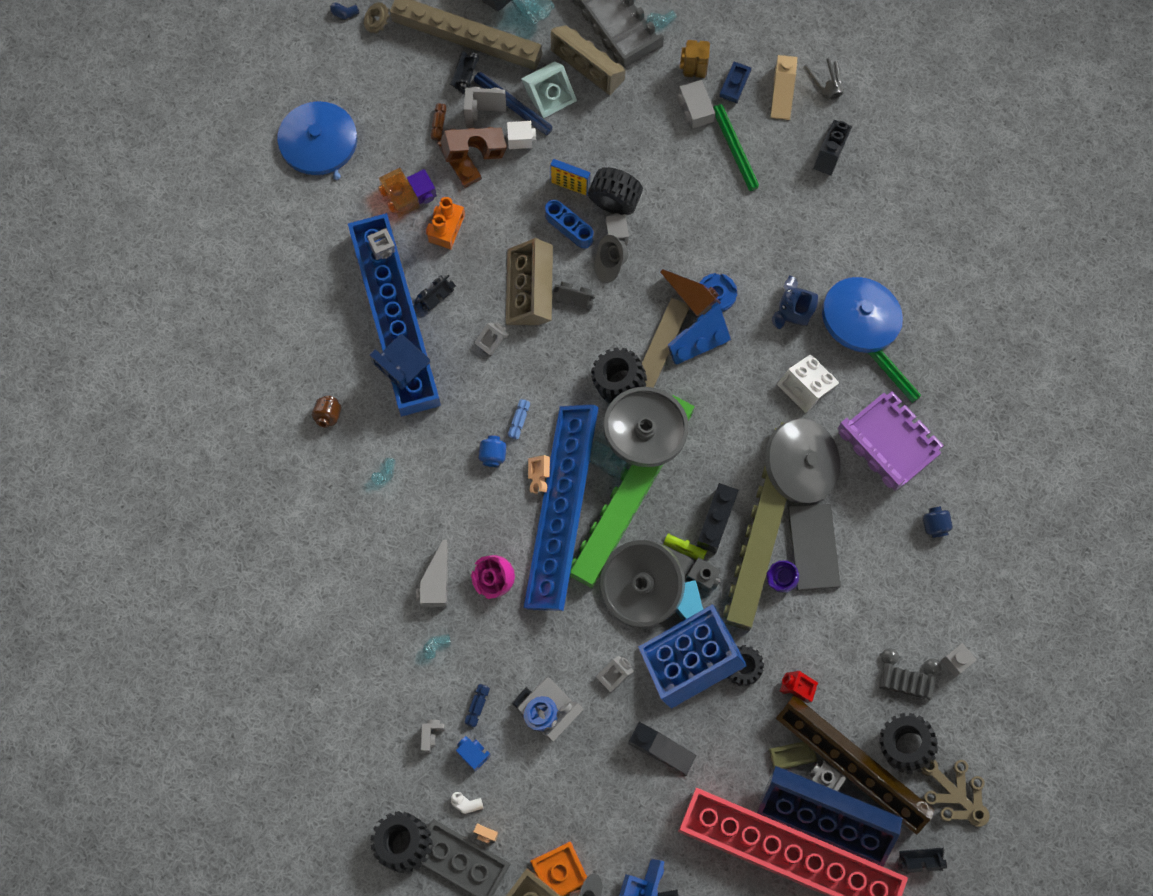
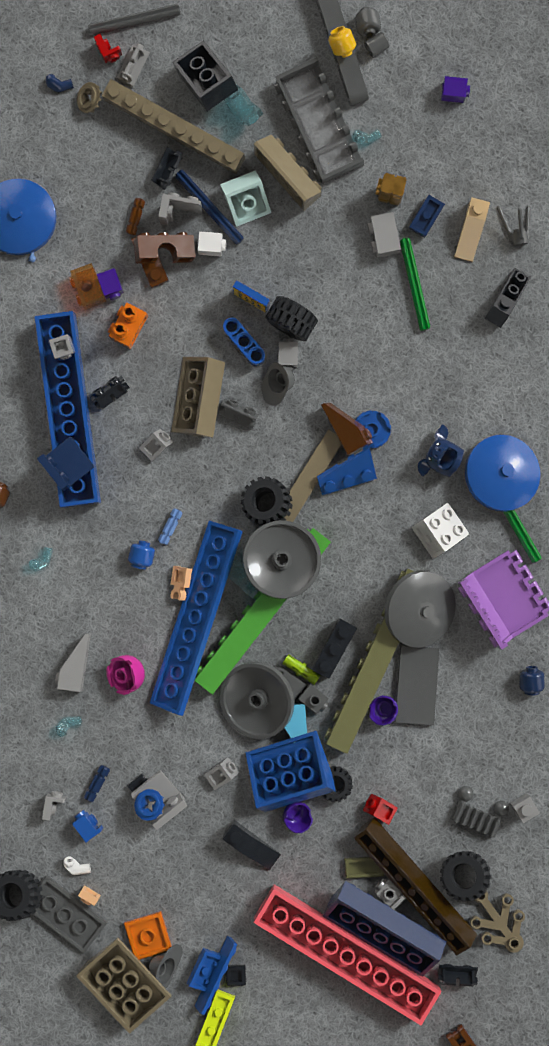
camera: 10 degrees right, 15 degrees up
(708, 707) = (297, 817): none -> dark purple hair

